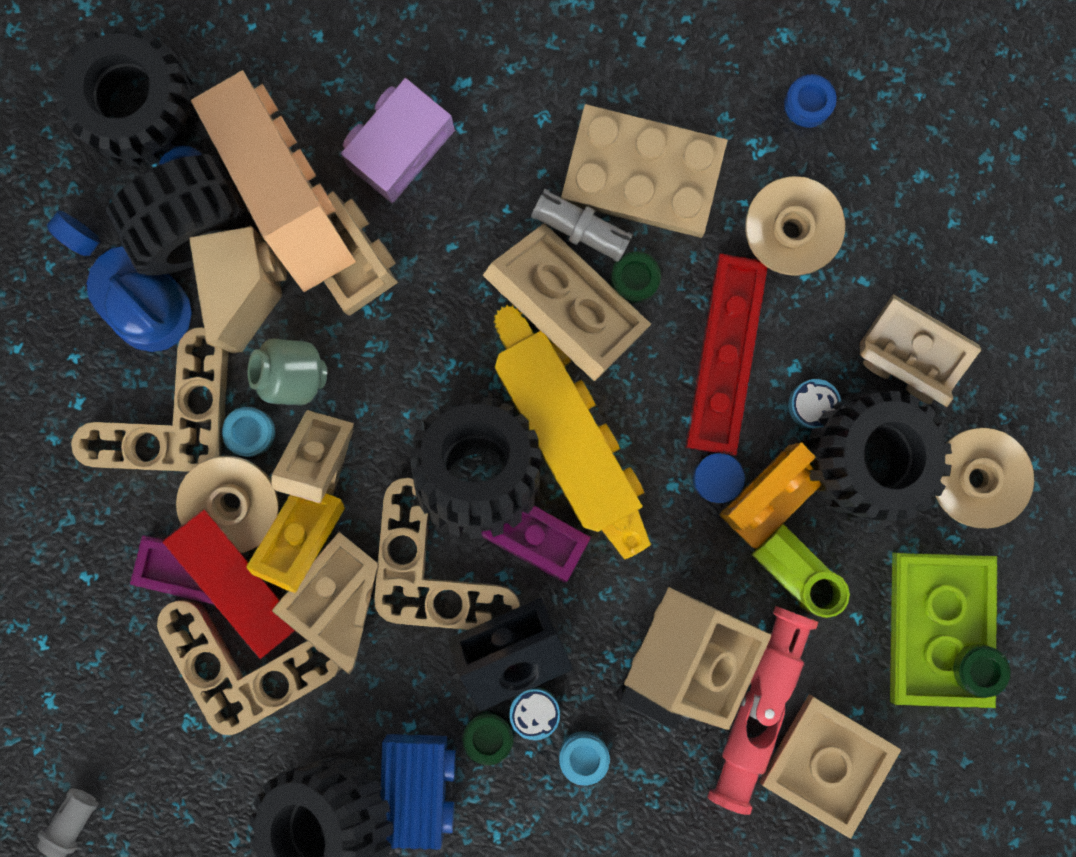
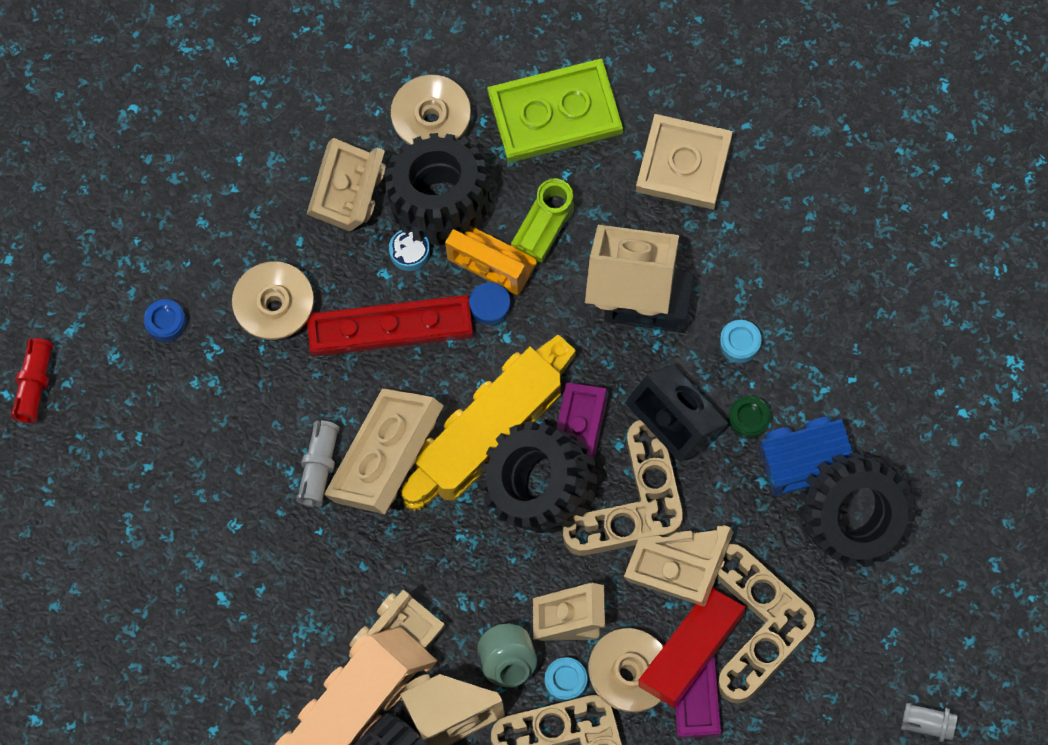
camera: 100 degrees left, 15 degrees down
(295, 540) = (642, 606): yellow plate -> none
(397, 139) = (288, 628): lavender brick -> none
(534, 713) = (719, 386): tile -> none
(636, 277) = (347, 411): dark green tile -> none
(644, 171) = (258, 431): tan plate -> none
(766, 700) = (695, 225): coral piece -> none
(981, 670) = (576, 74): dark green tile -> none

